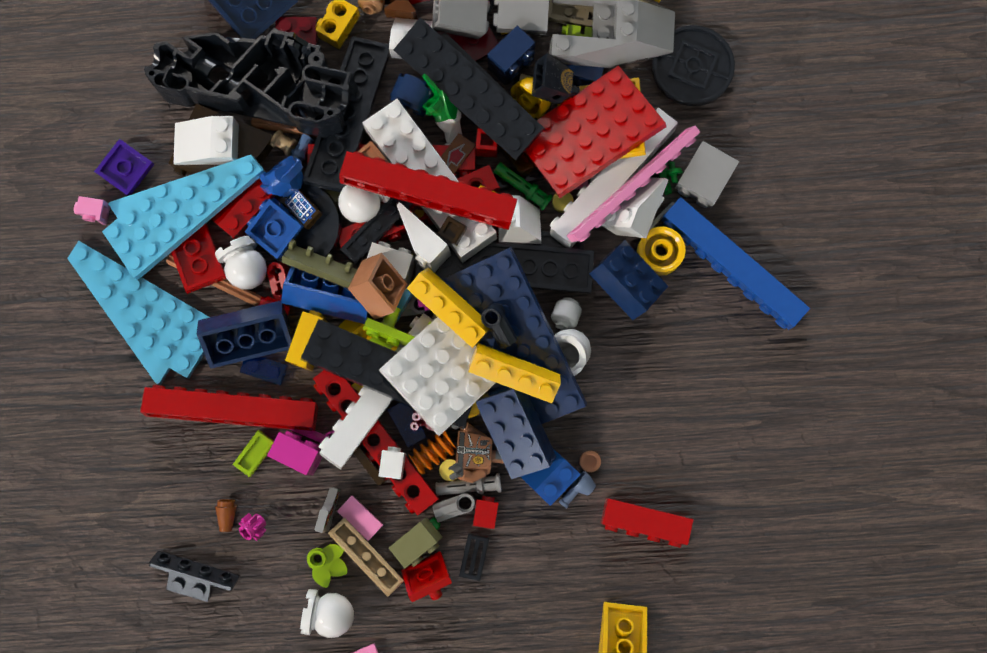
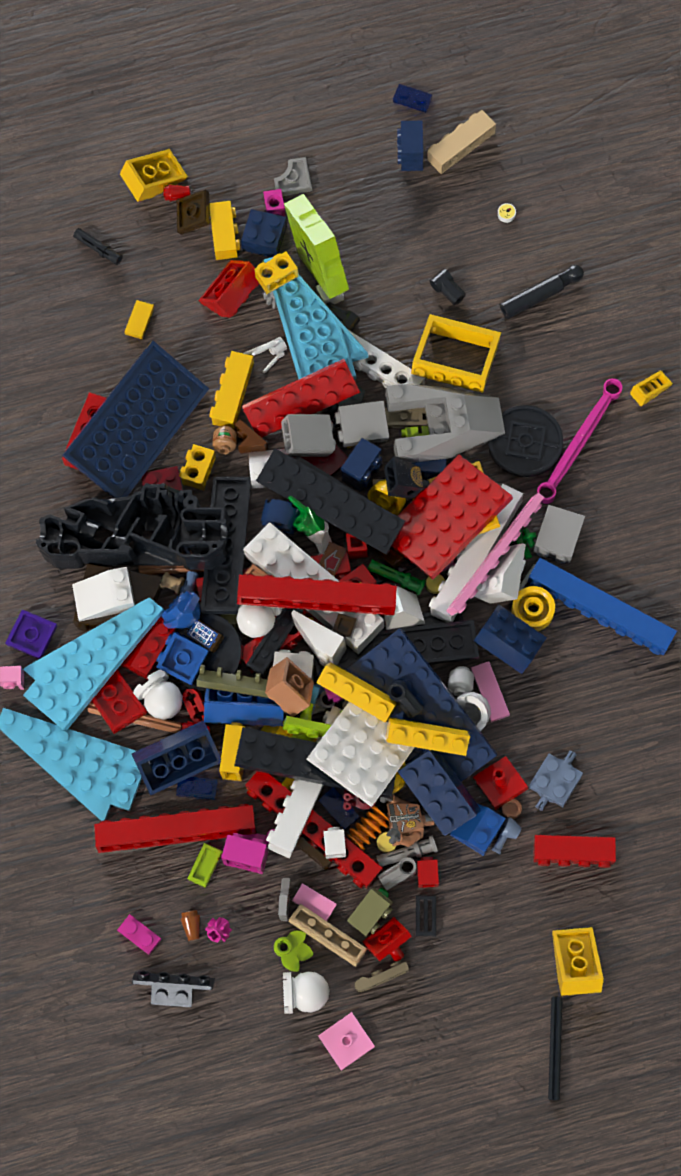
camera: 10 degrees left, 10 degrees down
(170, 512) = (139, 934): none -> dark pink plate
(410, 613) = (380, 977): none -> dark tan hinge
(584, 432) = (500, 783): none -> red tile
(595, 329) = (490, 690): none -> bright pink tile
(643, 441) = (555, 780): none -> sand blue plate
(747, 81) = (580, 439): none -> dark pink piece
(829, 40) = (642, 396): none -> yellow slope

